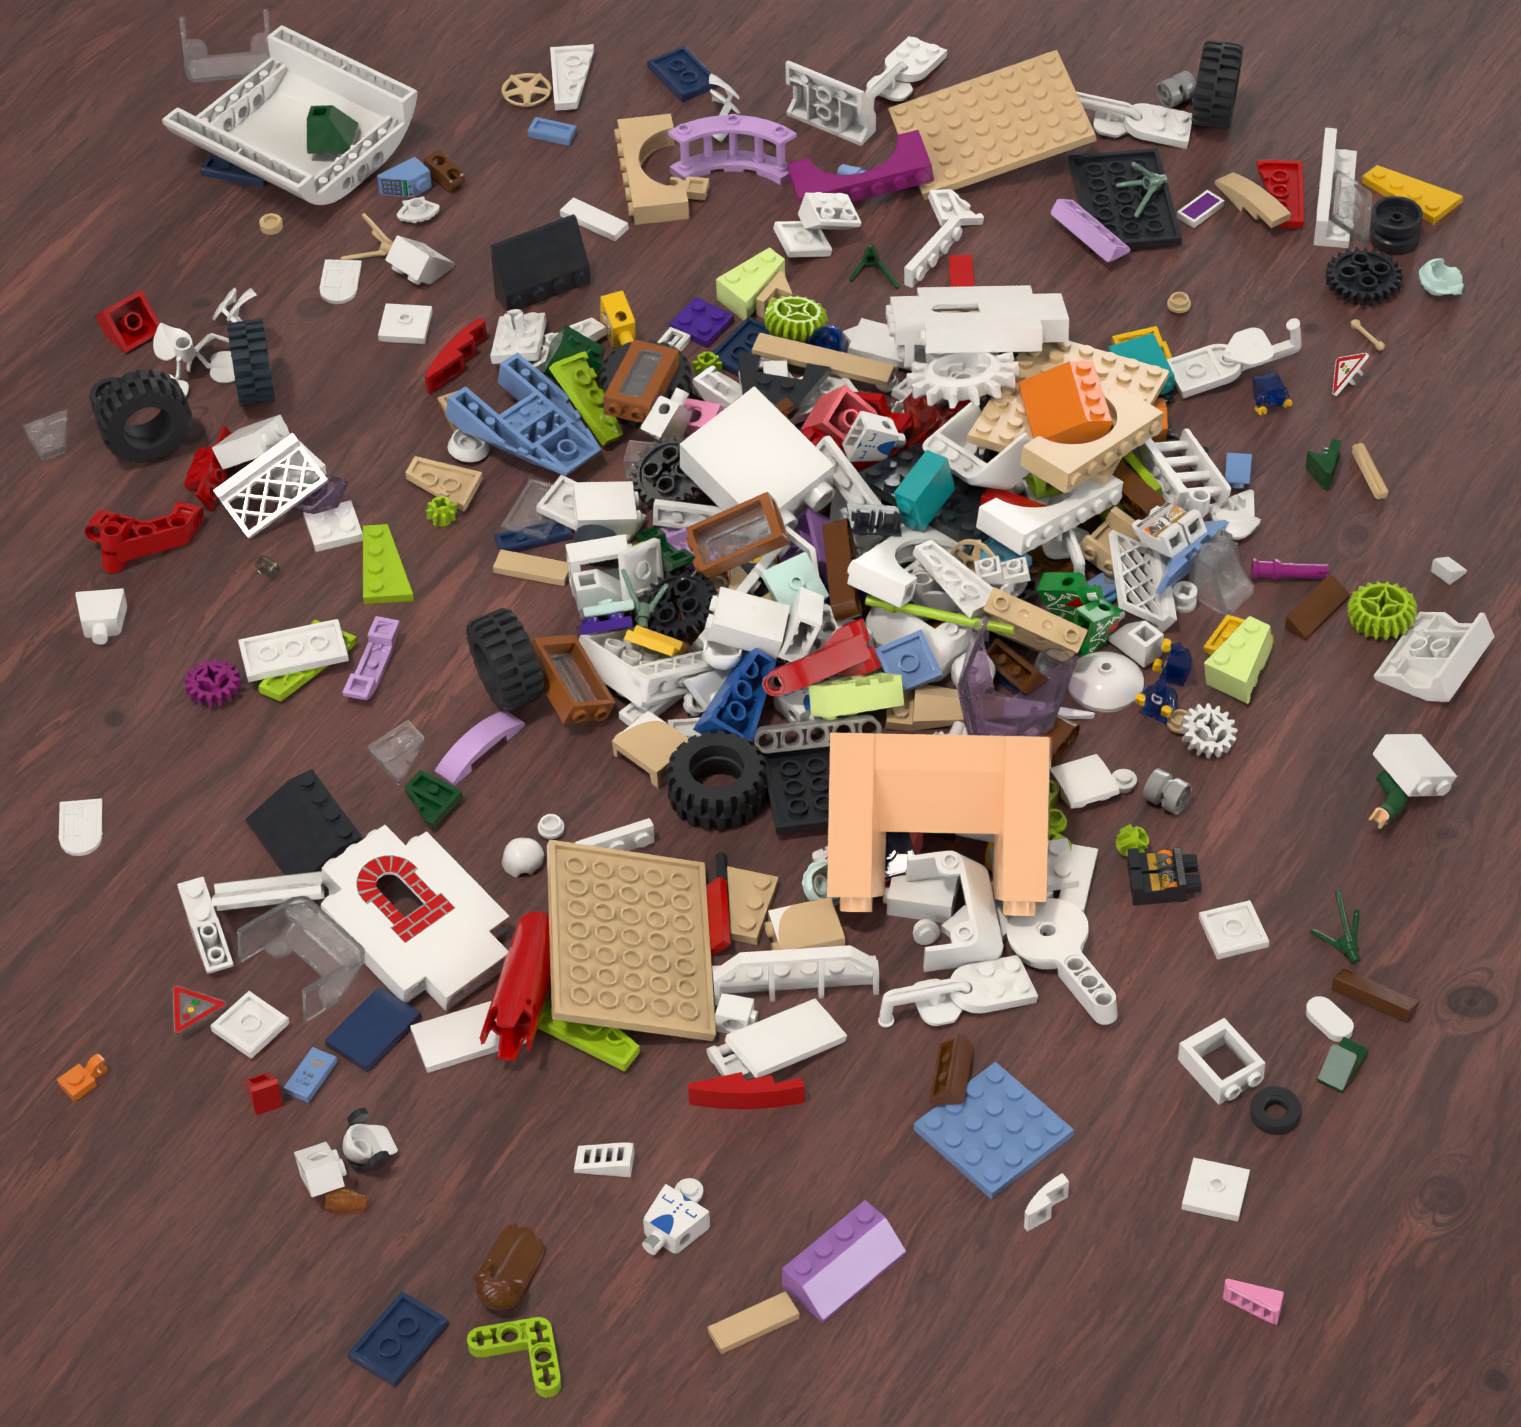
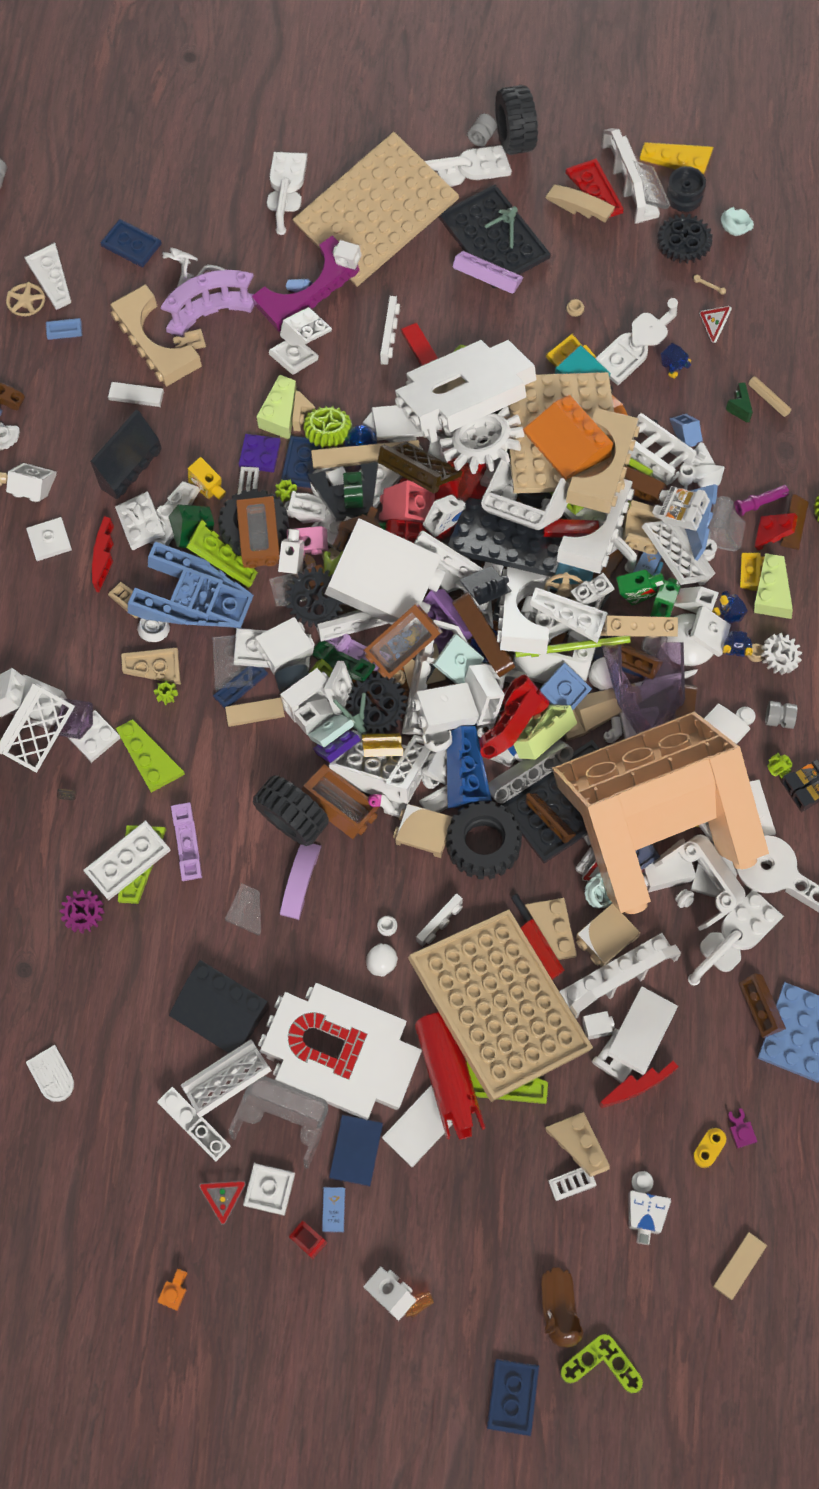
camera: 25 degrees left, 20 degrees up
(367, 1145) = (410, 1253): white cap -> none
(432, 797) = (292, 939): dark green wing -> none
(618, 695) = (379, 800): none -> arm
(637, 1119) = (581, 1143): none -> tan wing
(778, 381) = (353, 490): none -> dark green plate
(795, 1192) = (710, 1147): none -> yellow plate
(809, 784) = (549, 817): none -> reddish brown slope
(830, 104) = (255, 235): white piece -> none
(842, 1262) = (774, 1191): slope -> none
(844, 1191) = (741, 1132): none -> magenta plate
(869, 378) = (417, 465): none -> dark brown fence
(871, 258) = (349, 351): dark green plant -> none
(921, 151) = (347, 254): none -> white brick
(924, 490) = (512, 550): teal brick -> none
(948, 203) = (382, 288): white wing -> none
(1129, 673) = (710, 631): none -> white plate
(1200, 209) = (547, 223): tile -> none
(1284, 601) = (774, 528): none -> red wing

